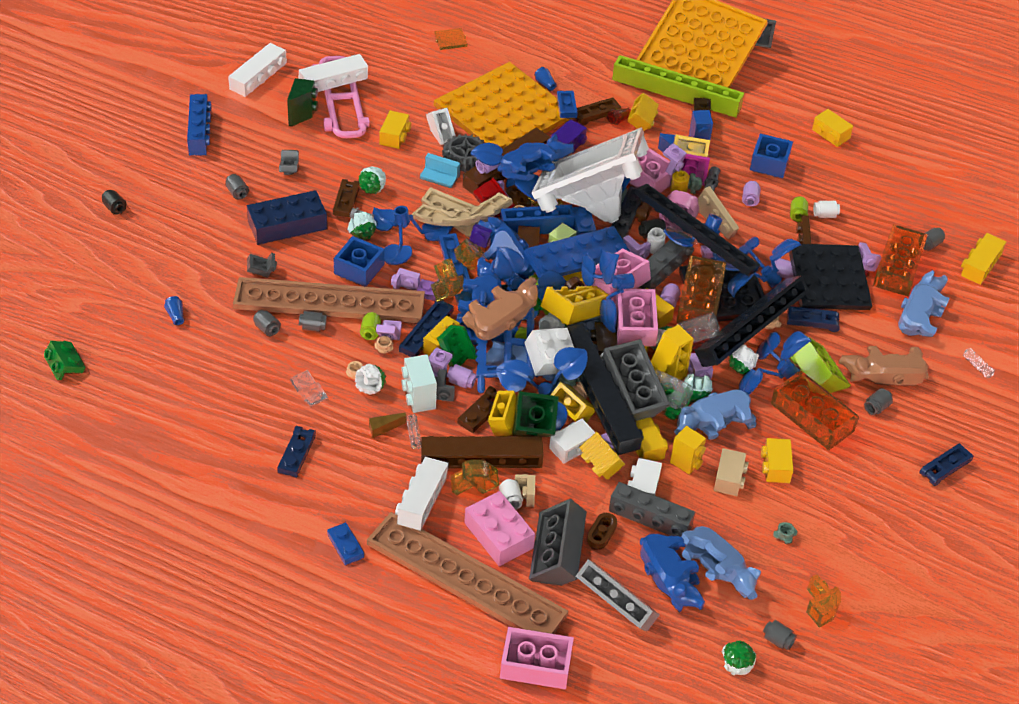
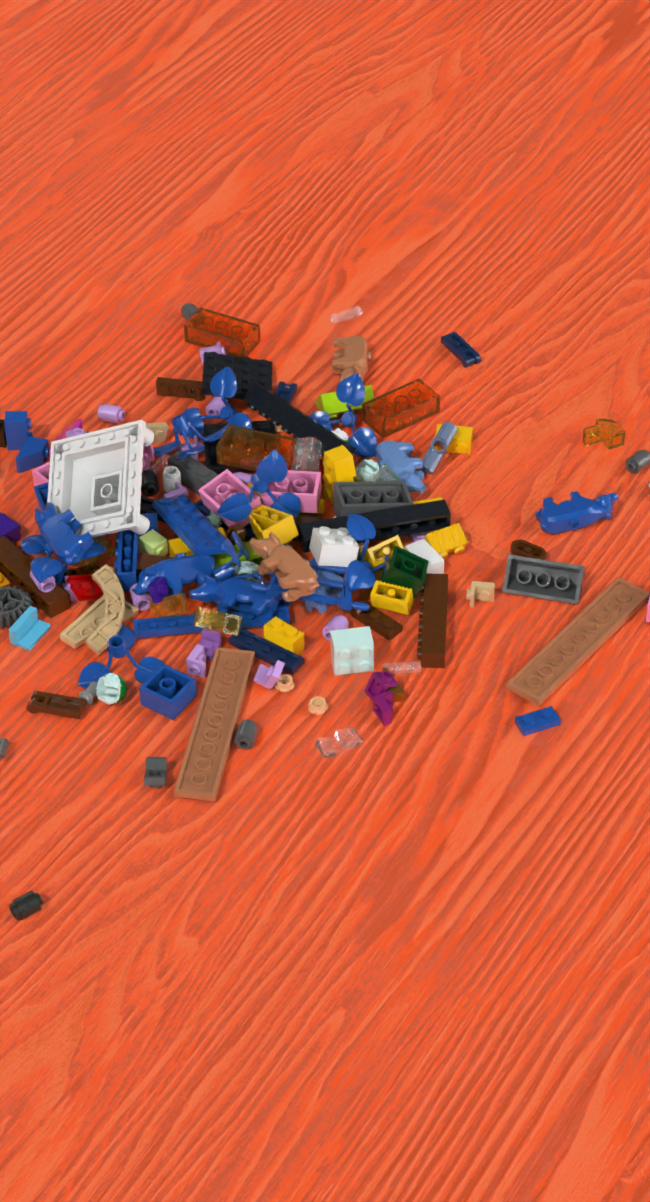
camera: 80 degrees left, 5 degrees down
(63, 358) = (279, 942): green bracket -> none
(174, 308) = (214, 846): blue cone -> none
(237, 186) = (22, 794): dark grey brick -> none
(266, 323) = (244, 770): dark grey brick -> none
(286, 217) = (84, 751): dark blue brick -> none
(296, 451) = (421, 753): dark blue plate -> none
(351, 415) = (383, 707): none -> magenta bracket
(369, 325) = (259, 691): lime brick -> none
(370, 379) = (337, 690): white piece -> none
(372, 180) = (38, 678): green piece -> none
(381, 411) = (379, 683): none -> magenta bracket
(422, 493) = (488, 657): white brick -> none
(439, 360) = (321, 636): lavender bracket -> none
(458, 343) = (302, 619): green bracket -> none
(475, 474) = (468, 626): clear yellow brick -> none
(499, 528) = (527, 613): bright pink brick -> none
(512, 492) = (486, 604): white brick -> none
(617, 595) = (605, 543): light grey brick -> none
(645, 475) = (475, 519): white brick -> none
(650, 510) = (509, 518): dark grey brick -> none
(688, 450) = (447, 483): yellow brick -> none
(692, 145) = (53, 430): yellow brick -> none
(697, 229) = (195, 430): black plate -> none
(721, 560) = (568, 479): medium blue animal -> none
(730, 471) = (465, 468): tan brick -> none
(748, 440) = (442, 439): none -> sand blue piece
(771, 155) = (63, 391): blue brick -> none
(785, 528) = (530, 446): sand green plate -> none
(798, 208) = (137, 387): lime brick -> none
(826, 209) = (141, 370): white brick -> none
(832, 127) = (25, 350): yellow brick -> none
(878, 401) = (389, 374): dark grey brick -> none
(923, 302) = (281, 331): medium blue animal -> none
(982, 258) = (223, 289): yellow brick -> none

